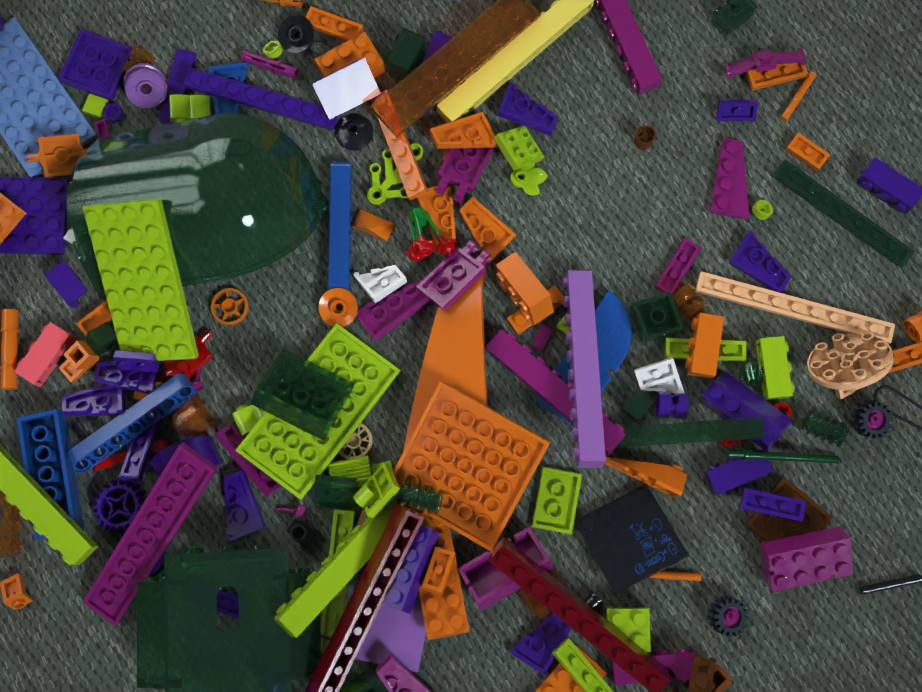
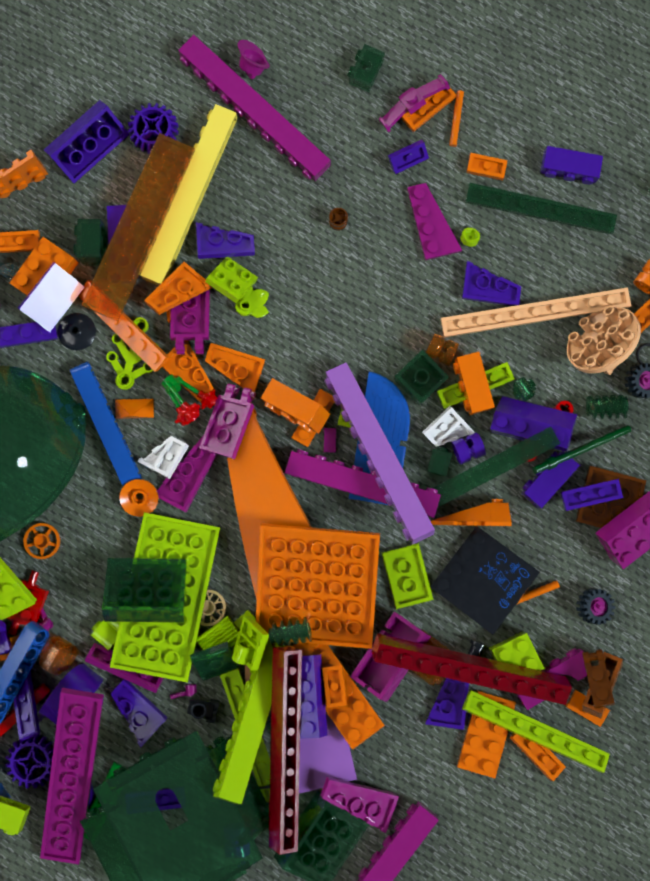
camera: 30 degrees left, 5 degrees up
(678, 266) = (419, 322): magenta tile -> none
(777, 369) = (543, 373): lime brick -> none

